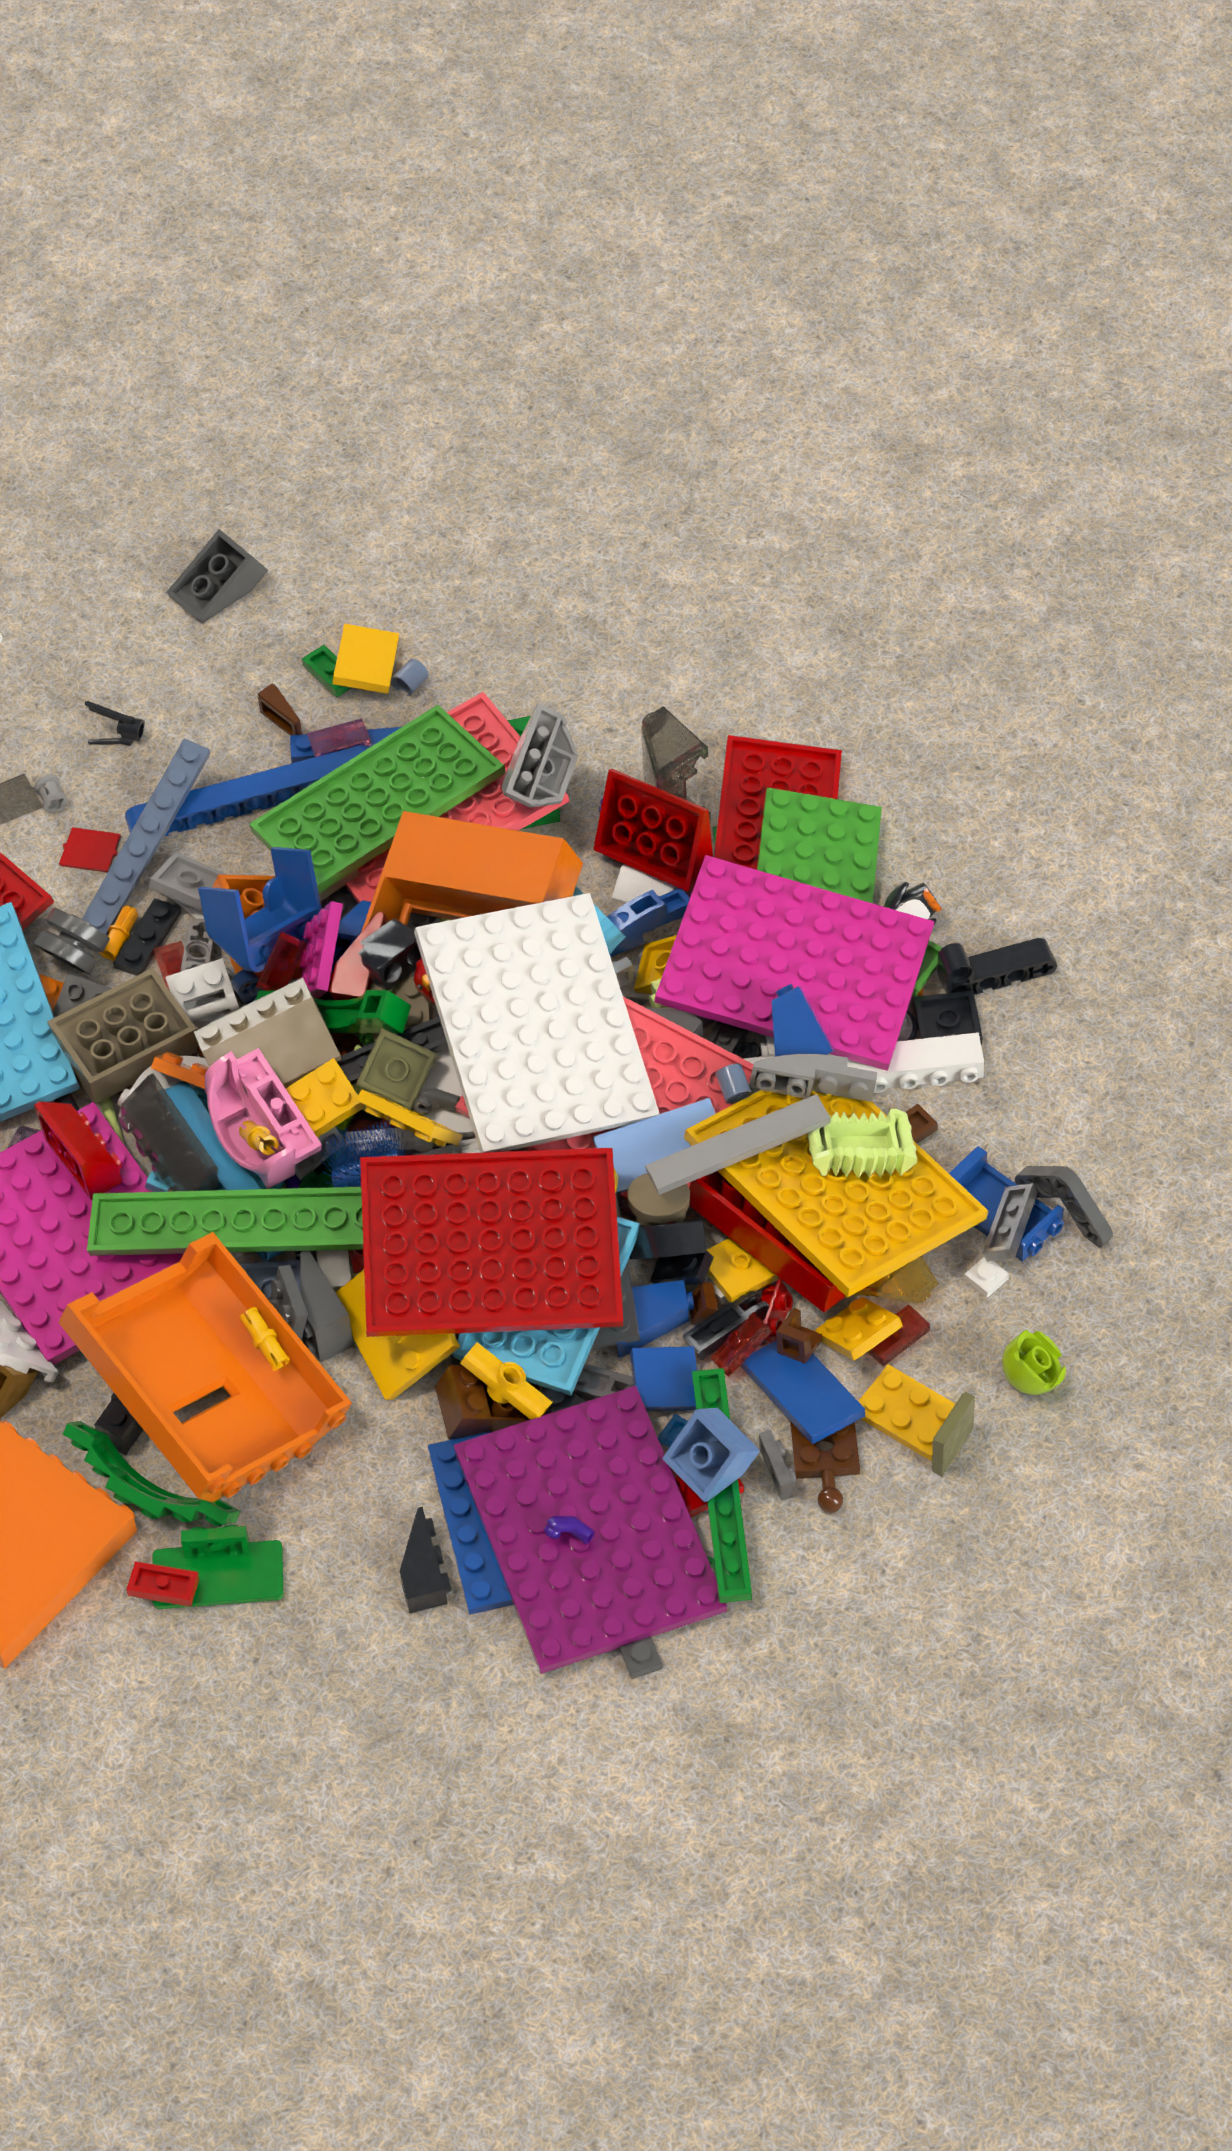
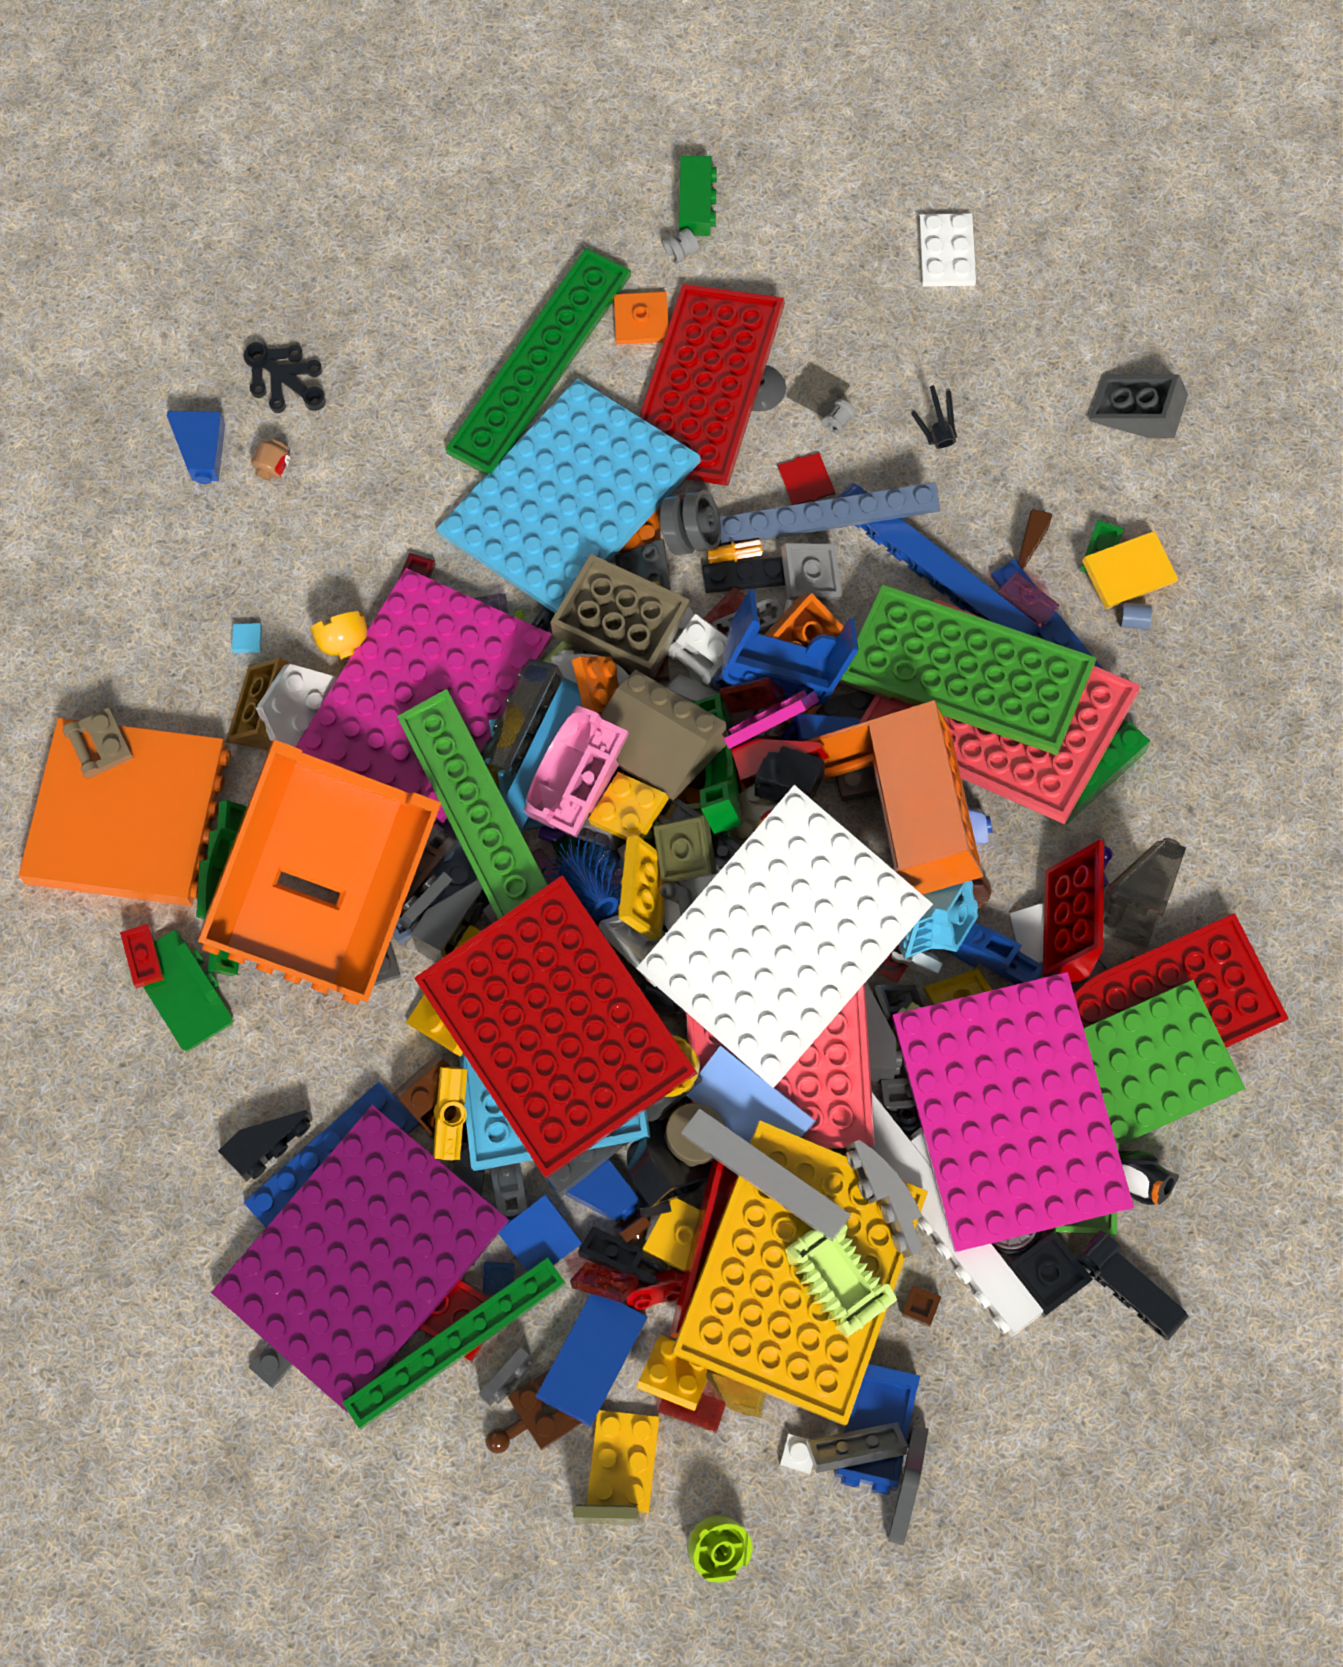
camera: 60 degrees right, 15 degrees up
(79, 1148) = (485, 650): red slope -> none
(258, 1137) = (553, 782): yellow pin -> none
(264, 1339) = (382, 900): yellow pin -> none
(541, 760) = (1074, 779): light grey wedge -> none
(569, 1524) = (340, 1240): dark purple arm -> none
(710, 1453) = (467, 1320): medium blue slope -> none
(733, 1083) = (838, 1133): sand blue beam -> none
(796, 1025) = (929, 1156): blue slope -> none
(796, 1340) = (635, 1327): reddish brown panel -> none

